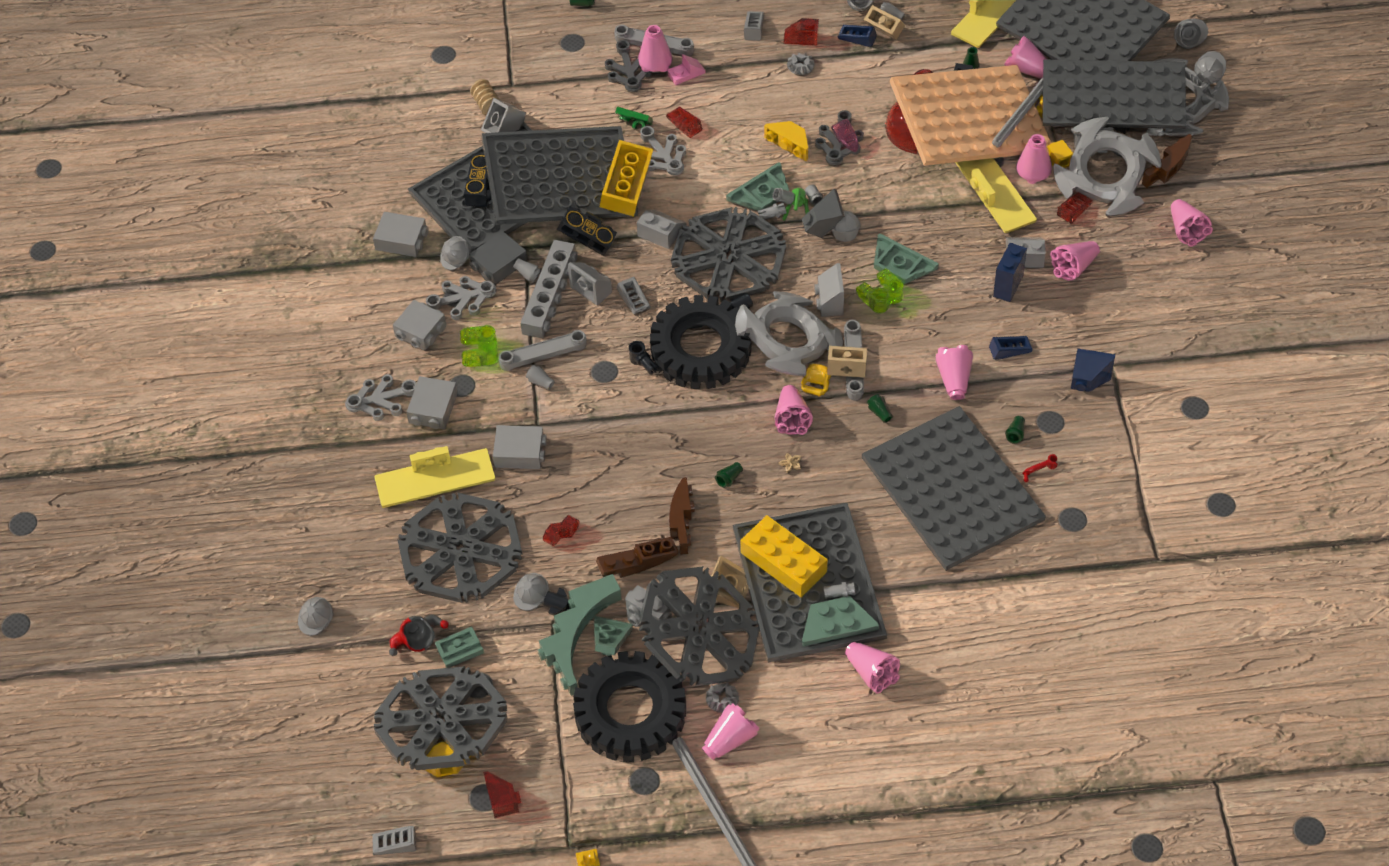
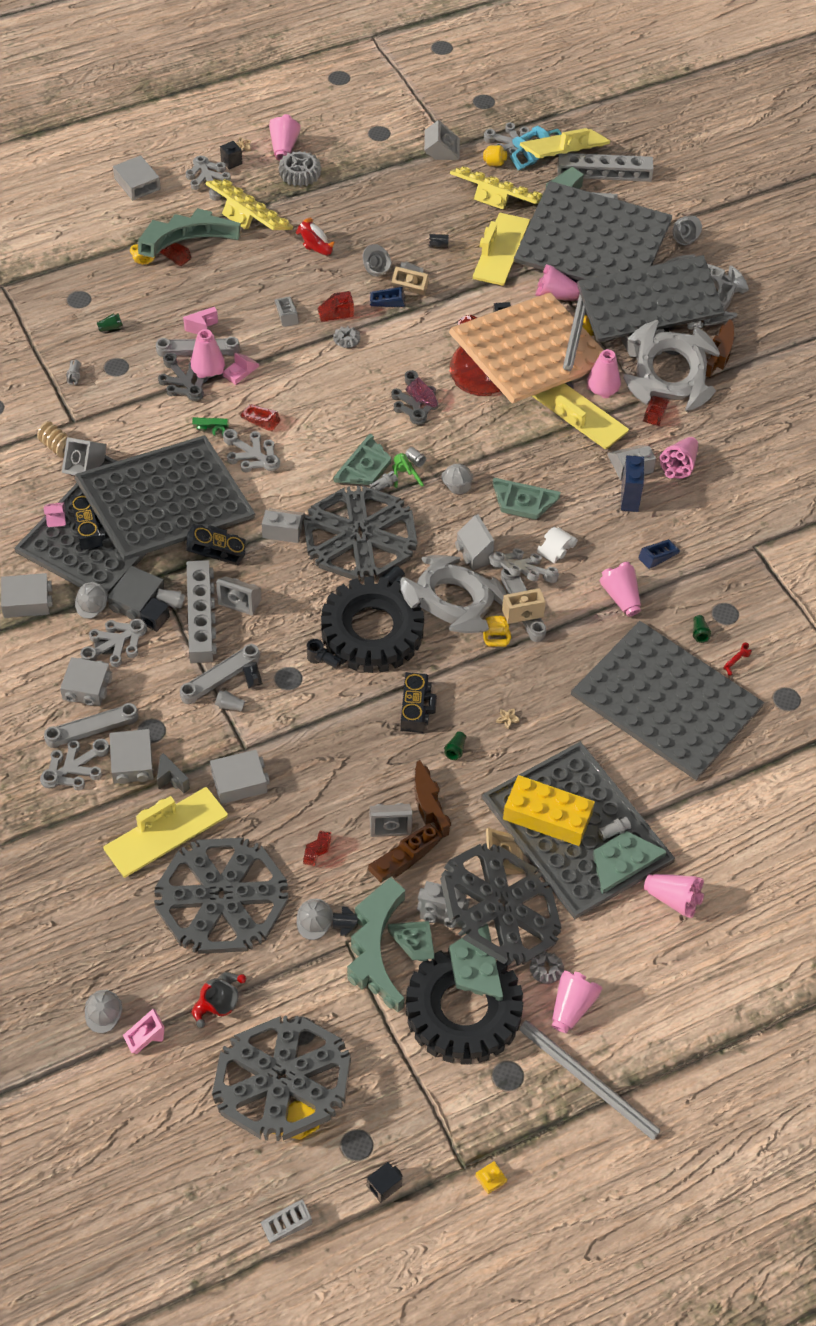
camera: 25 degrees left, 0 degrees up
(341, 643) = (143, 1032): none -> bright pink slope
(409, 366) = (91, 725): none -> light grey piece
(455, 166) = (55, 514): none -> bright pink slope
(457, 427) = (171, 773): none -> dark grey slope
(459, 647) = (266, 998): sand green plate -> none
(487, 346) = (160, 679): clear neon green piece -> none
(492, 834) = (384, 1181): none -> black brick
(502, 795) = (376, 1137): clear red slope -> none
(507, 281) = (155, 614): none -> black brick
(529, 39) = (73, 373): none -> light grey pin
(570, 358) = (252, 674): none -> black piece
(626, 178) = (235, 484): yellow brick -> none
(632, 283) = (285, 589): light grey slope -> none
(636, 523) = (390, 820): none -> light grey slope
(649, 676) = (474, 968): none -> sand green wing
(667, 15) = (200, 320): none -> bright pink slope
(705, 427) = (414, 713): none -> black piece
(783, 196) = (389, 464): light grey piece -> none
(788, 137) = (368, 408): yellow slope -> none
(792, 412) = (491, 668): bright pink cone -> none
(824, 215) = (436, 472): dark grey slope -> none
(869, 324) = (515, 567): none -> light grey plant
(879, 407) = (568, 642): dark green cone -> none
(880, 298) = (522, 538): clear neon green piece -> none
(912, 310) = (556, 544): none -> white cylinder
(972, 58) = (504, 294): dark green cone -> none
(1060, 153) = (626, 364): yellow brick -> none
(1091, 369) = (743, 554): dark blue slope -> none
(1189, 223) = (765, 398): bright pink cone -> none
(1210, 67) = (723, 255): light grey piece -> none

